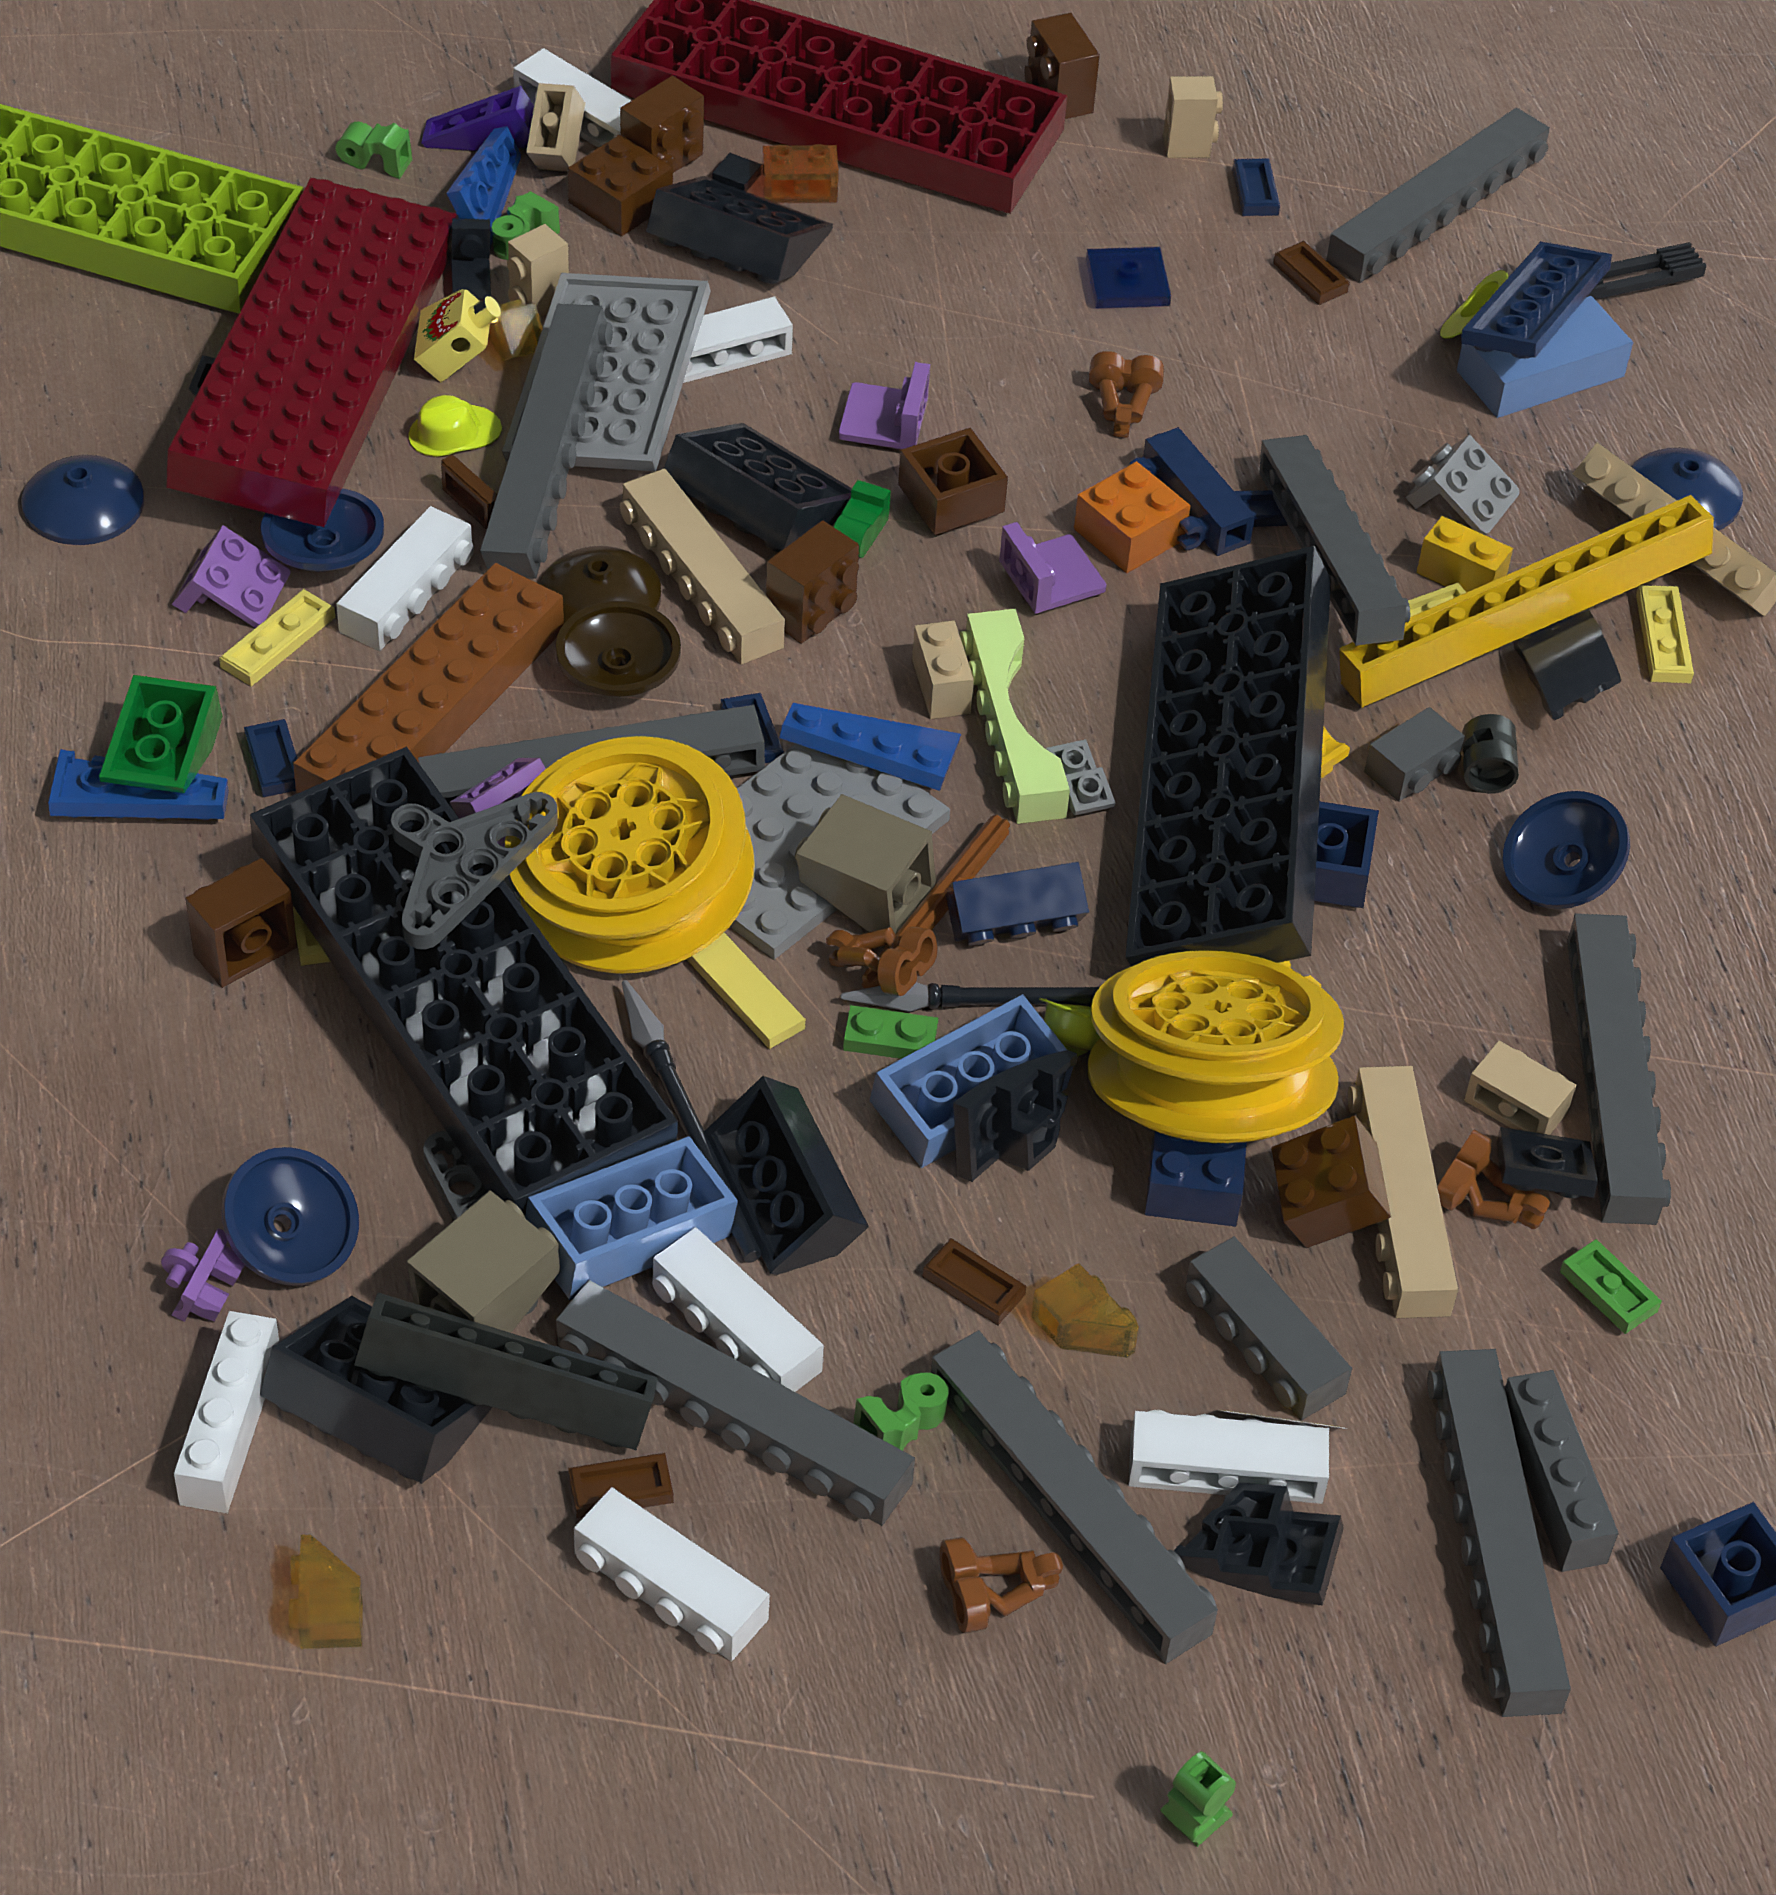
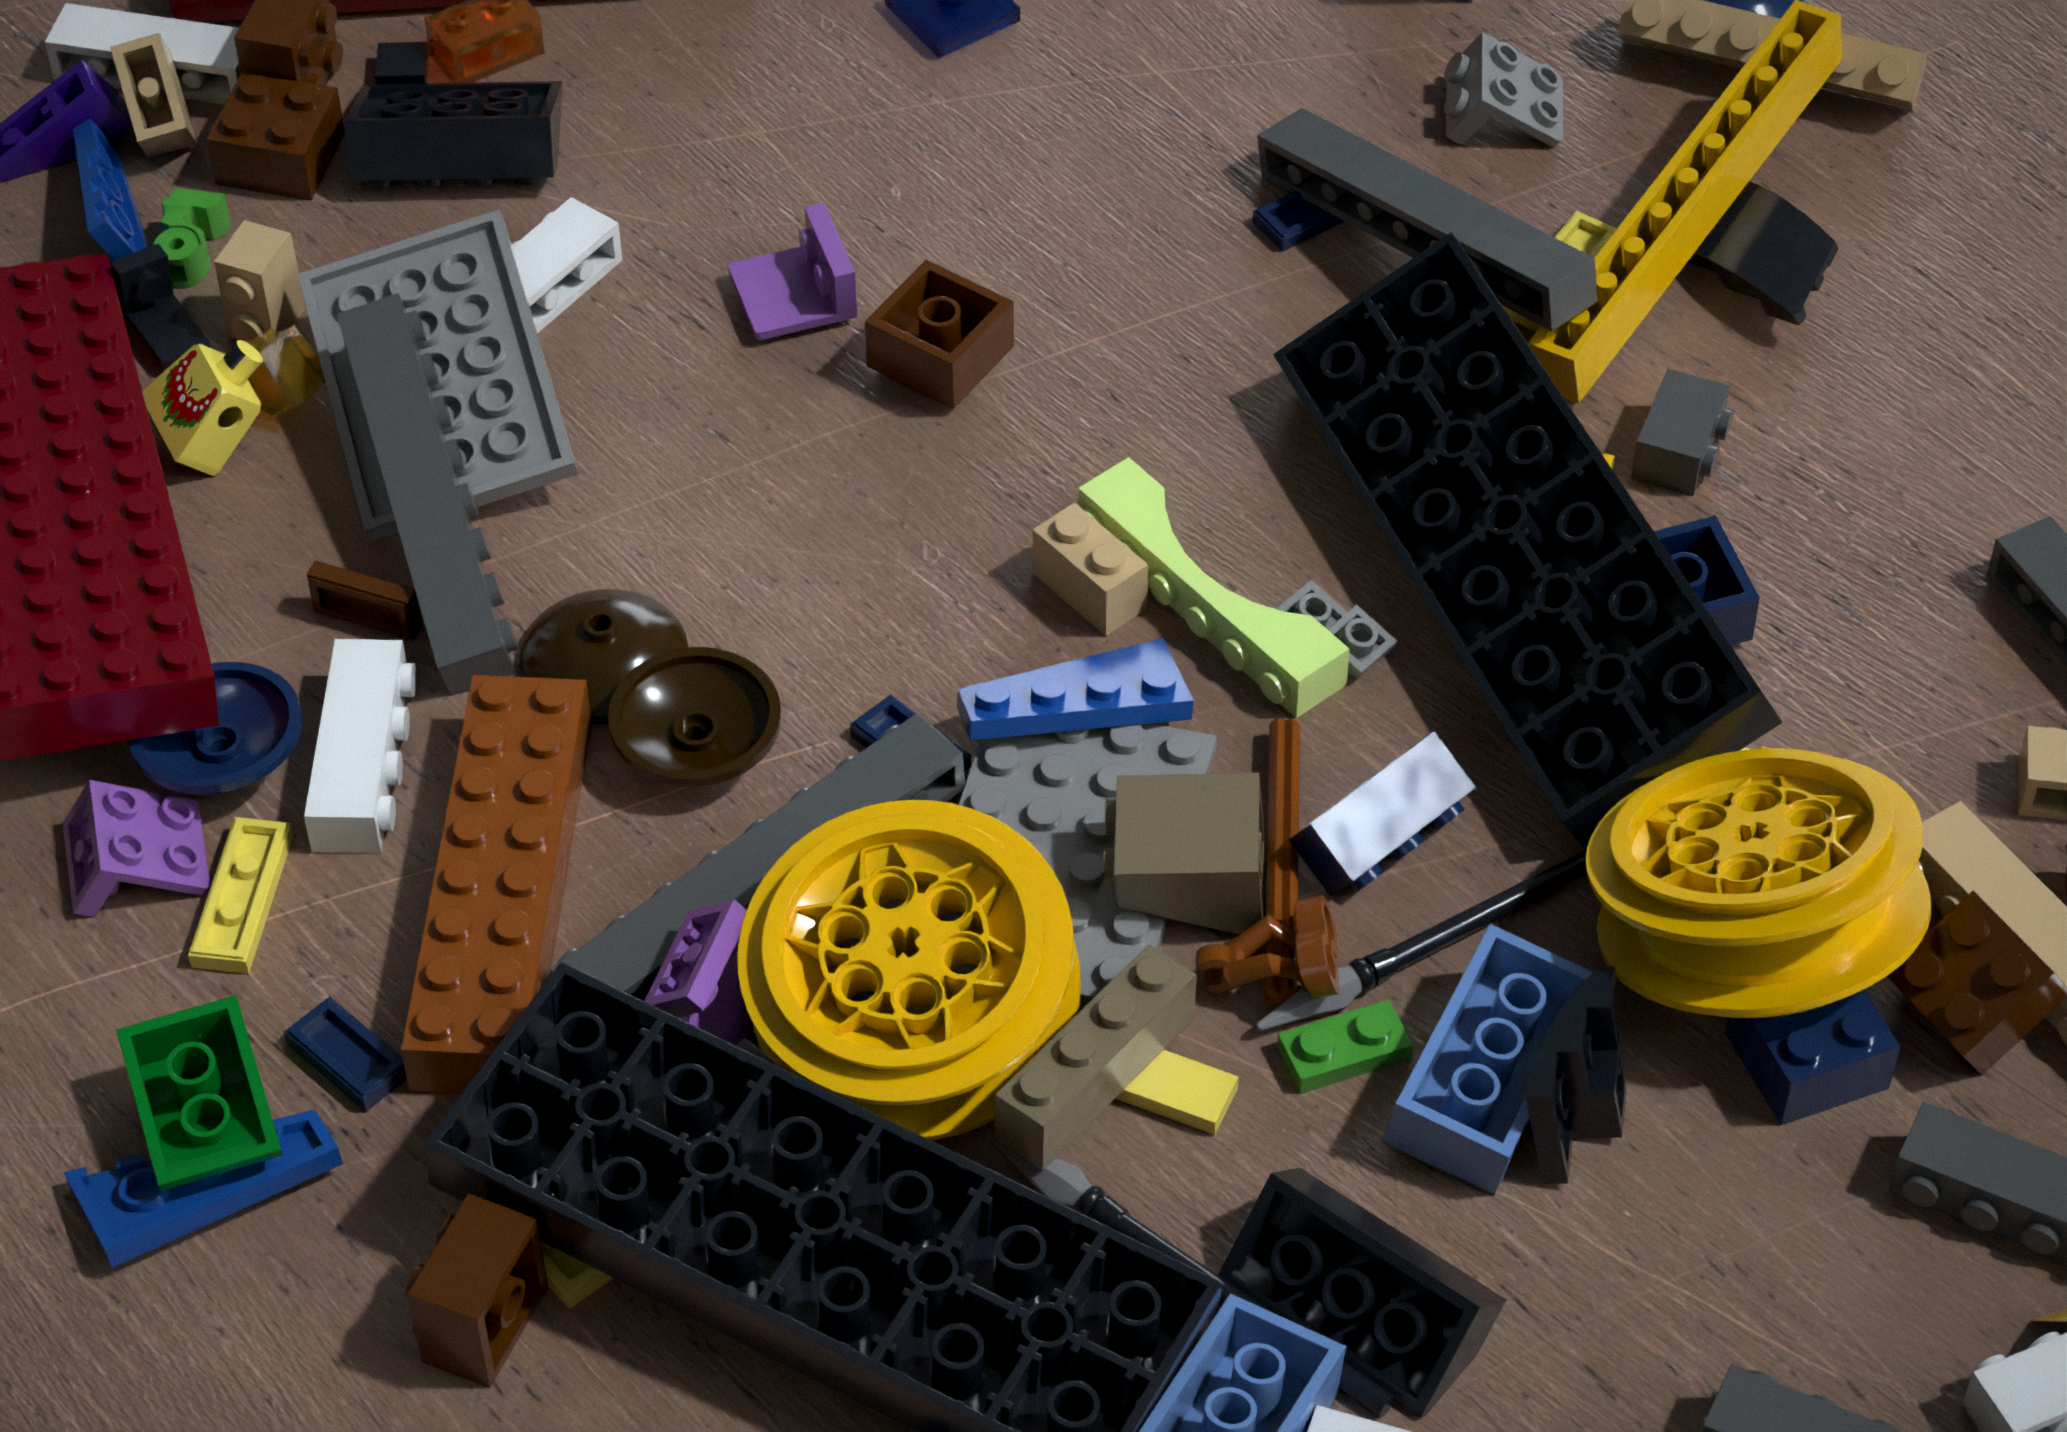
camera: 25 degrees left, 0 degrees up
(452, 426) = (274, 527): neon yellow piece -> none
(477, 843) = (733, 1099): dark grey beam -> none
(702, 566) = (714, 567): tan brick -> none
(713, 960) = (1094, 1057): none -> dark tan brick
(755, 483) = (707, 439): black slope -> none
(813, 580) = (871, 529): reddish brown brick -> none
(865, 514) = (859, 426): green leg -> none
(974, 1281) = (1659, 1305): reddish brown tile -> none
(1049, 571) = (1119, 394): medium lavender bracket -> none
(1071, 1025) = (1561, 925): neon yellow piece -> none
(1084, 1316) = (1819, 1283): clear yellow slope -> none
(1130, 516) = (1170, 289): orange brick -> none
(1141, 377) = (1055, 117): dark orange piece -> none
(1215, 509) = (1219, 228): dark blue brick -> none
(1462, 556) = (1569, 178): yellow brick -> none
(1490, 753) = (1764, 394): pearl dark grey wheel -> none
(1556, 834) = (1923, 438): dark blue dish -> none
(1664, 634) = (1834, 177): light yellow tile -> none

